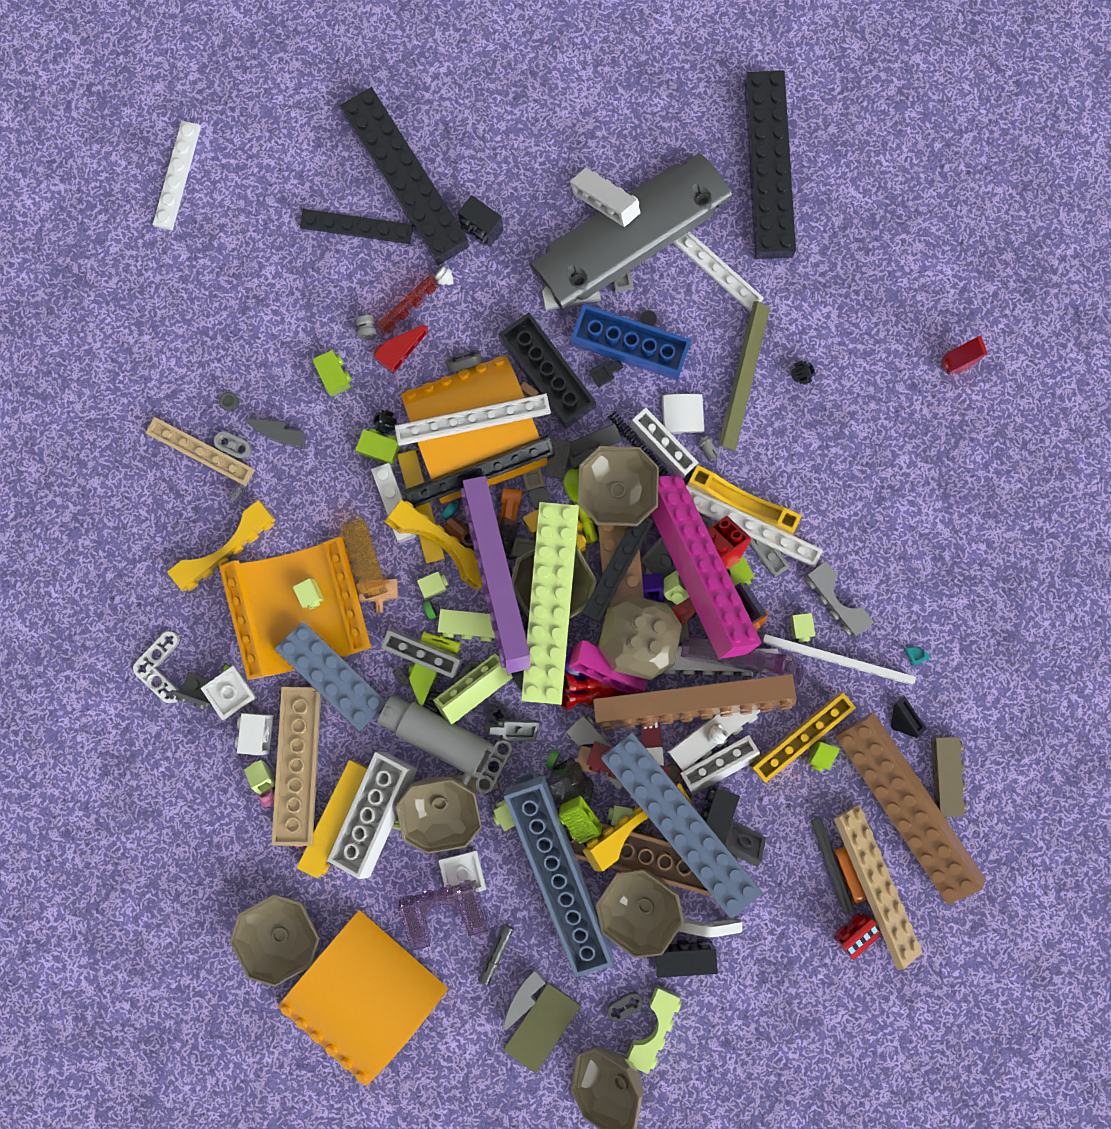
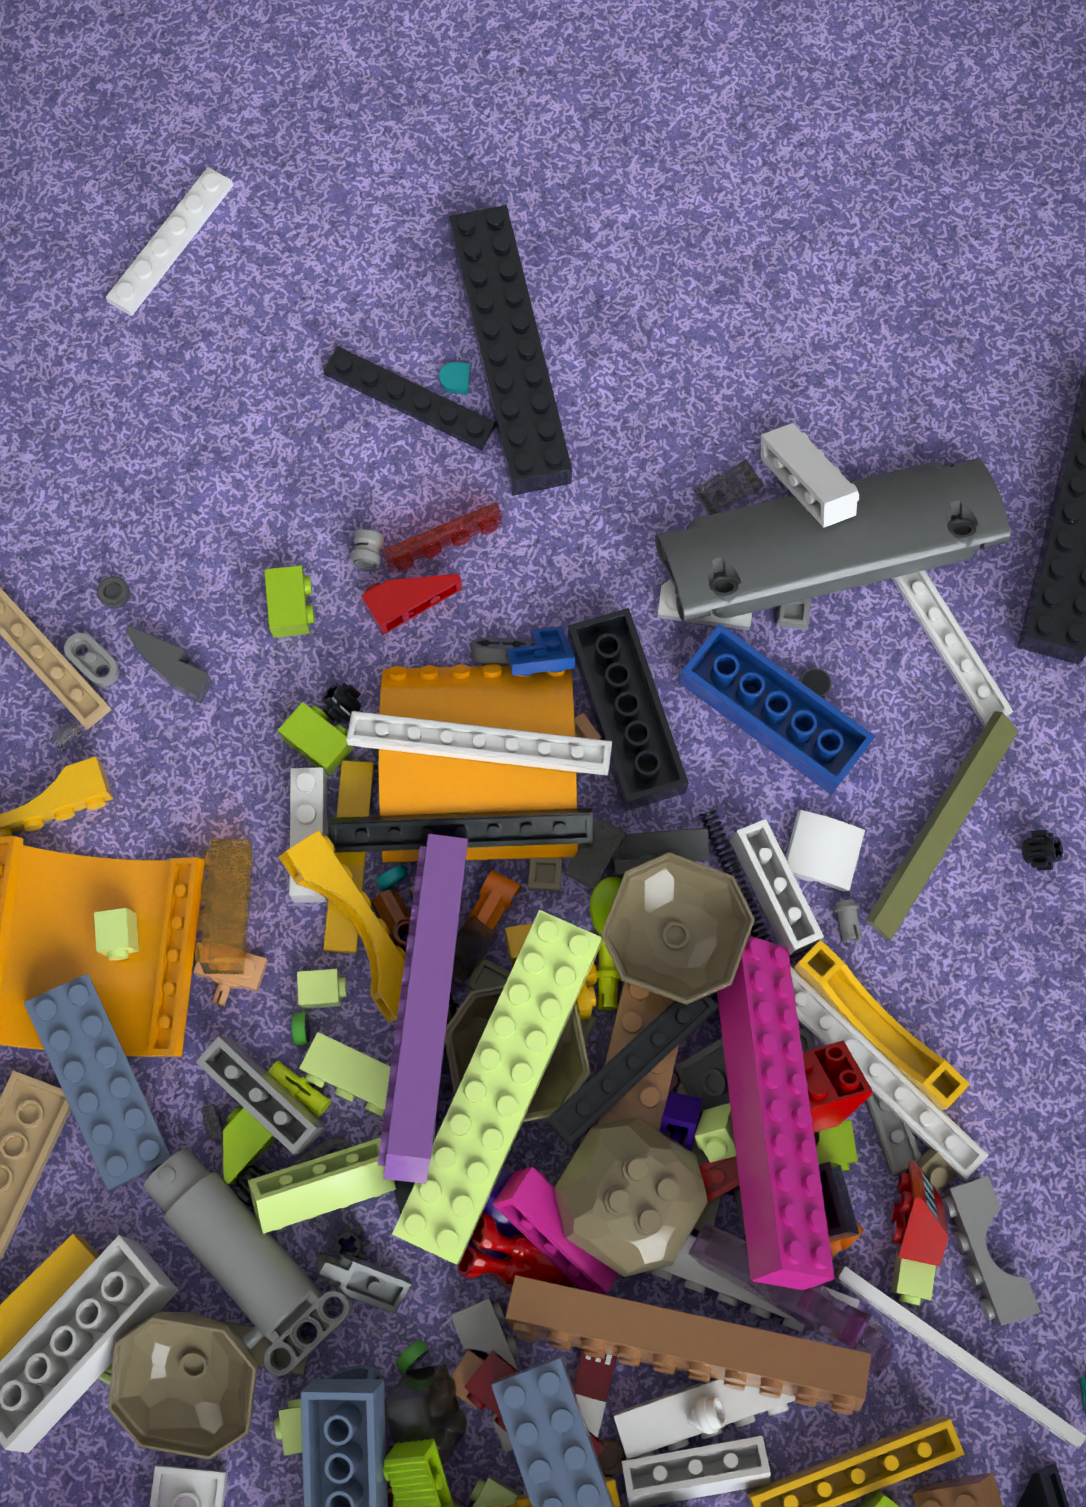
camera: 15 degrees right, 10 degrees down
(379, 205) = (455, 377): none -> teal tile
(444, 276) = (516, 514): white plate -> none
(480, 221) = (601, 449): black brick -> none
(492, 353) = (549, 653): none -> blue plate
(539, 495) = (545, 901): dark grey tile -> none
(563, 217) = (729, 488): none -> clear smoke slope
(603, 373) = (715, 744): black plate -> none
(795, 569) = (935, 1169): none -> dark tan plate
(796, 596) = (918, 1218): none -> red slope

